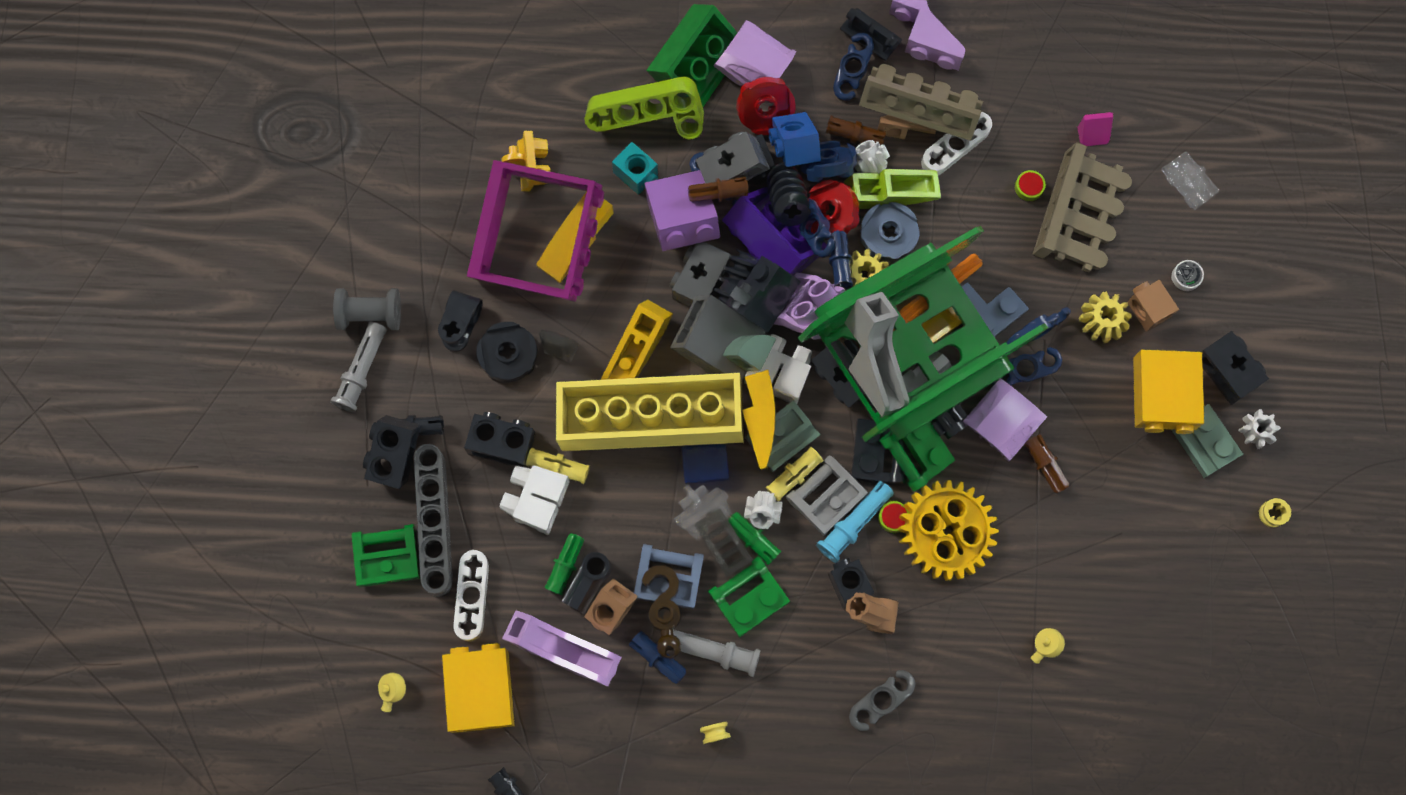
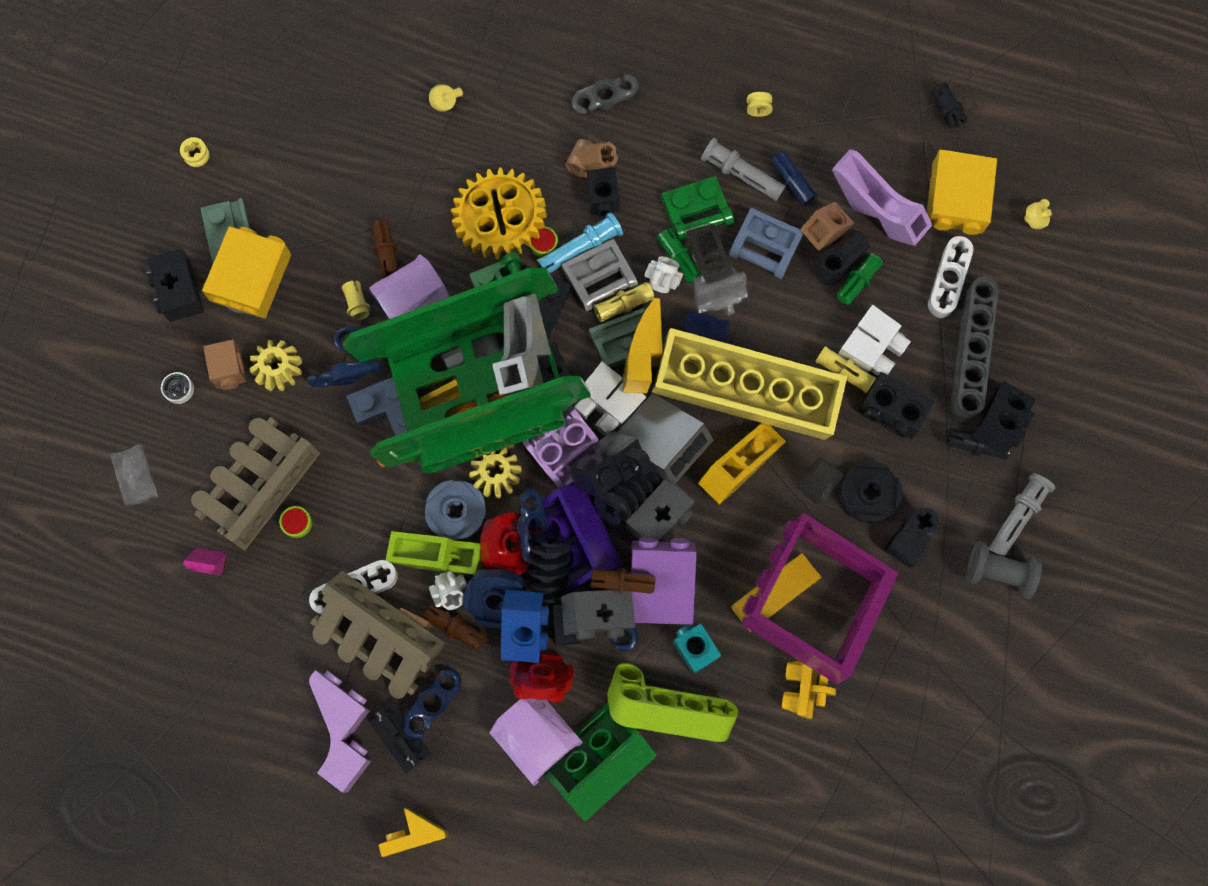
camera: 165 degrees left, 0 degrees up
(386, 565) = (1025, 322): green plate -> none
(664, 612) = (779, 206): dark brown piece -> none
(750, 351) = (636, 412): sand green brick -> none
(841, 261) = (518, 480): dark blue axle -> none
(1055, 402) = (358, 308): none -> light yellow pin
(1265, 422) = (169, 218): white gear -> none

